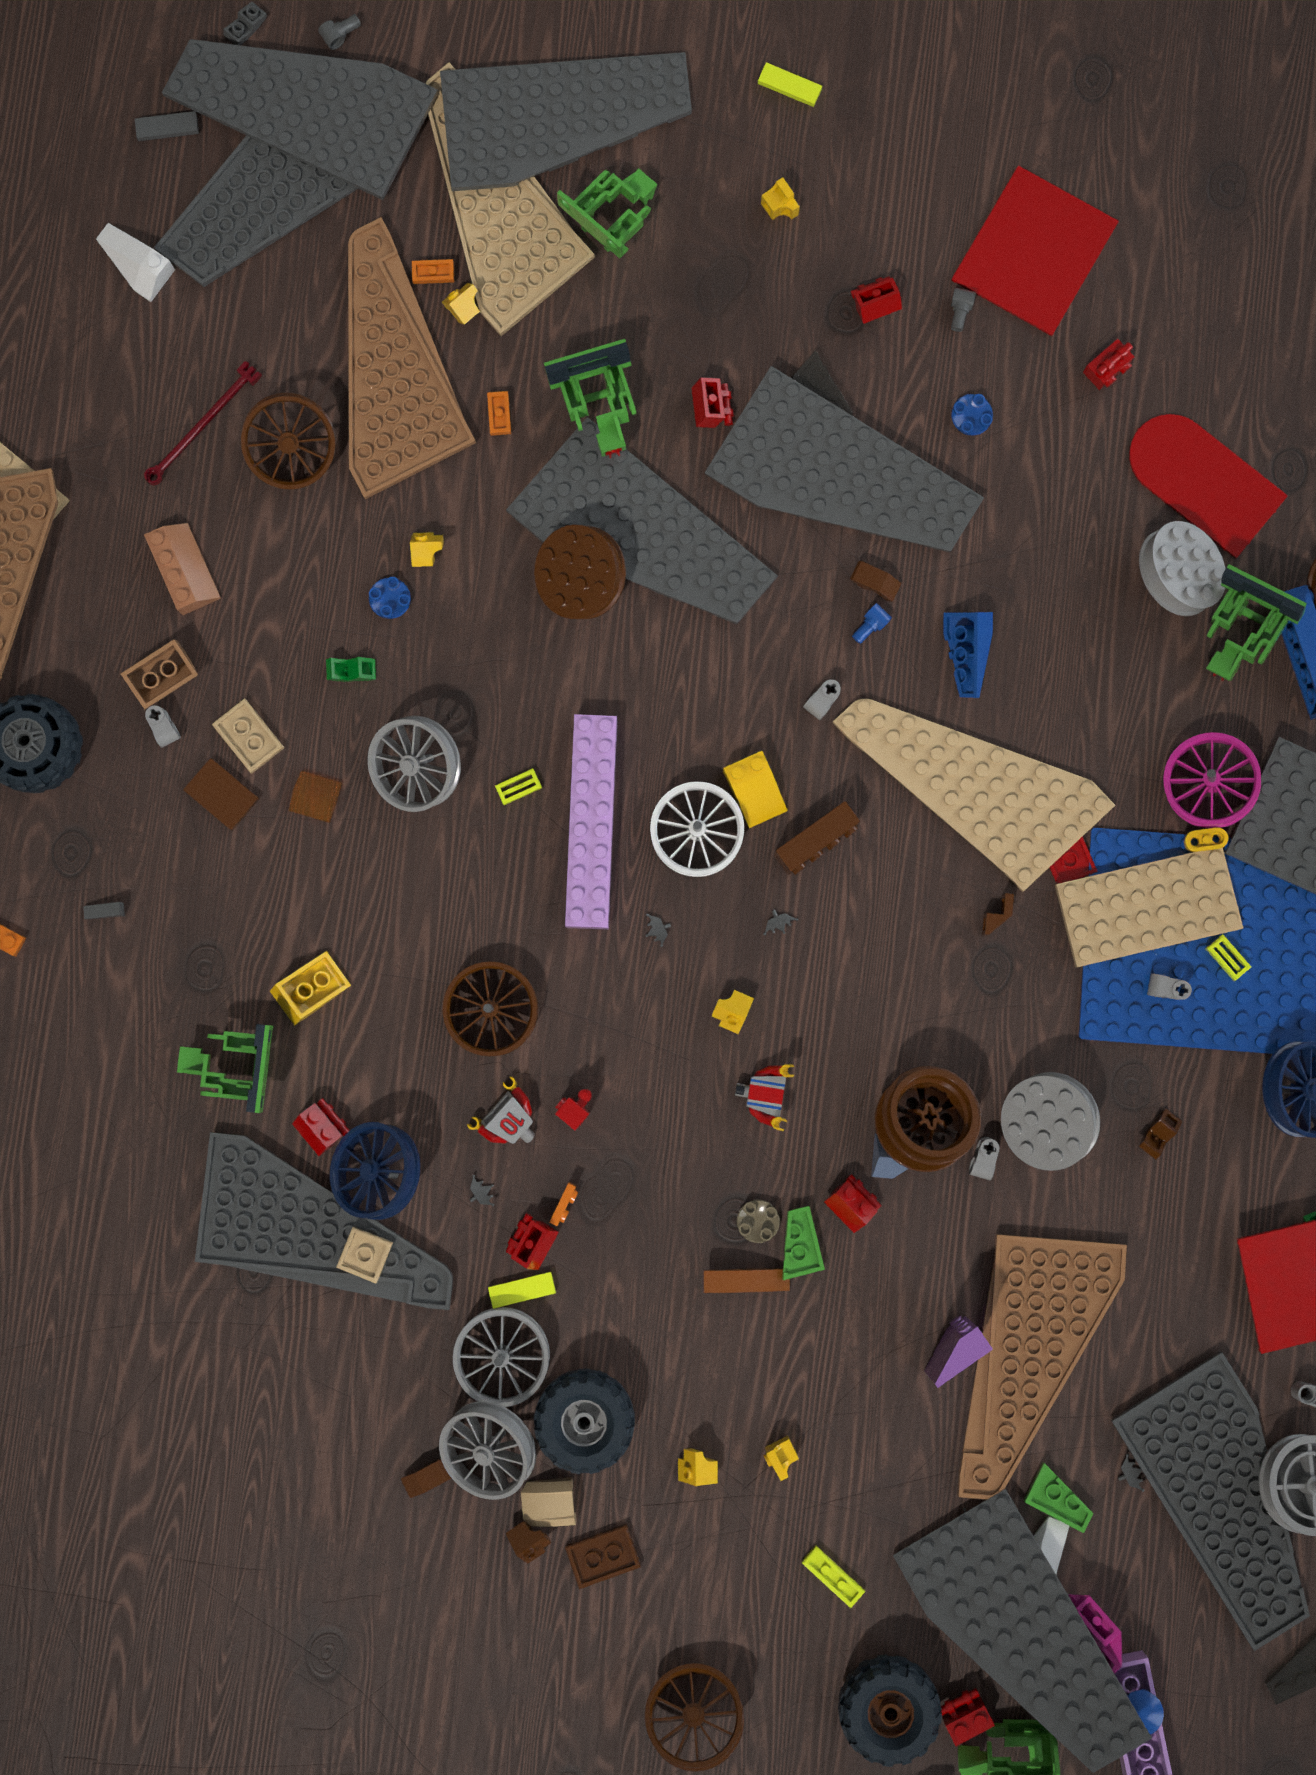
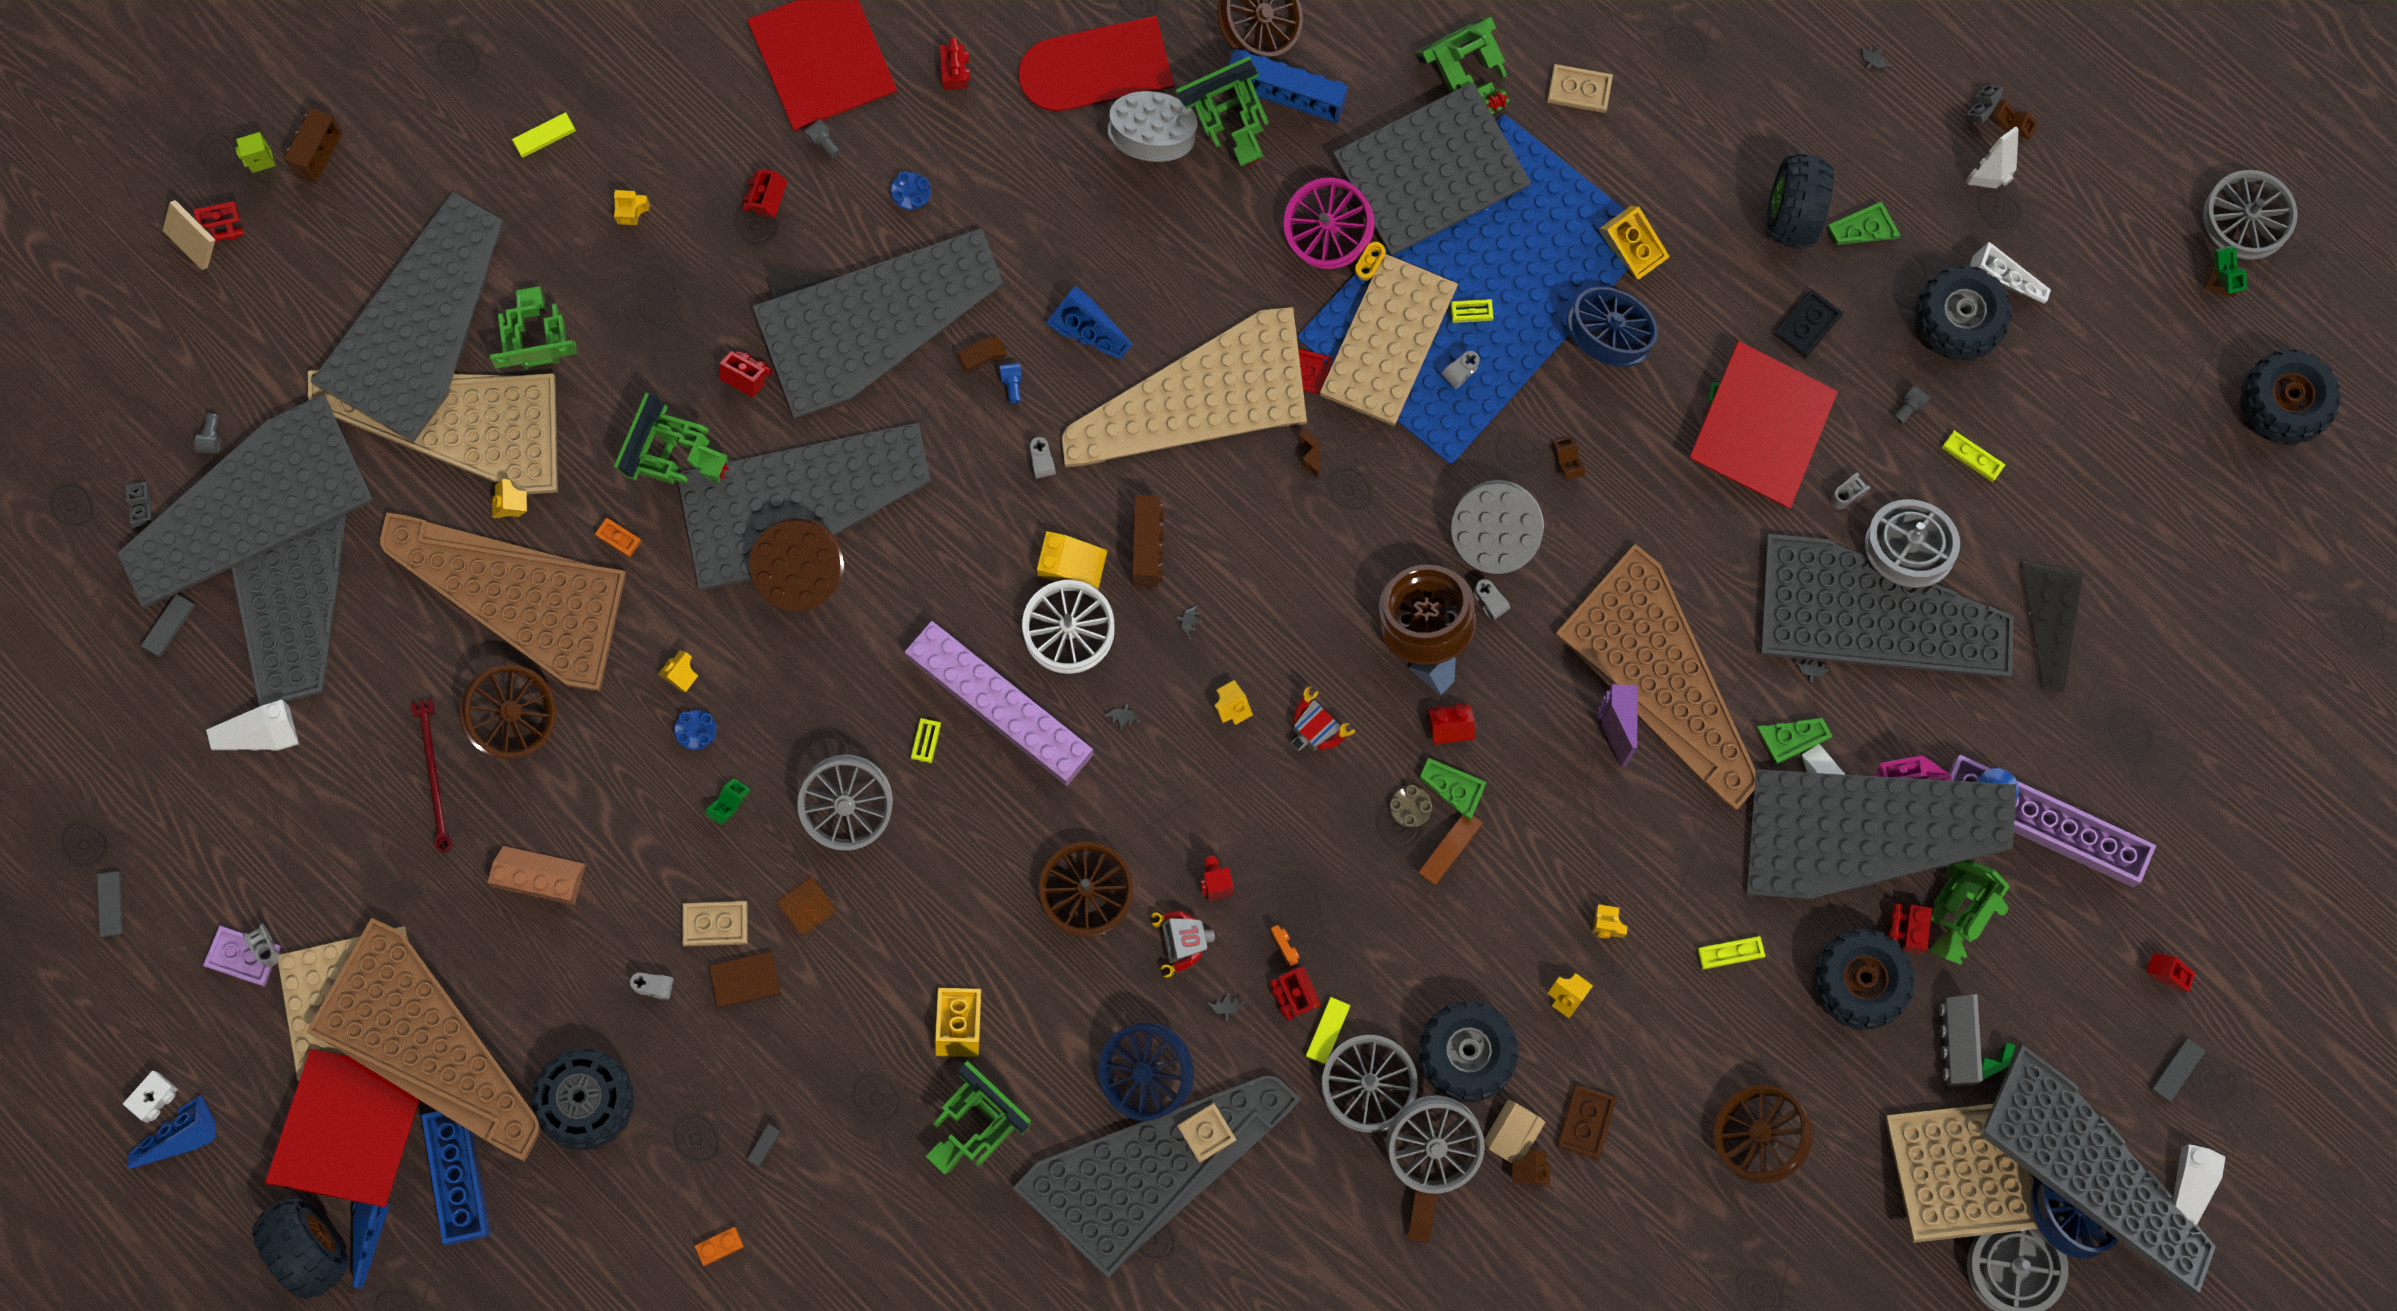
camera: 60 degrees left, 10 degrees down
(160, 674) = (610, 953): medium nougat slope -> none
(318, 1129) = (1076, 1095): red brick -> none
(433, 271) = (463, 505): orange plate -> none

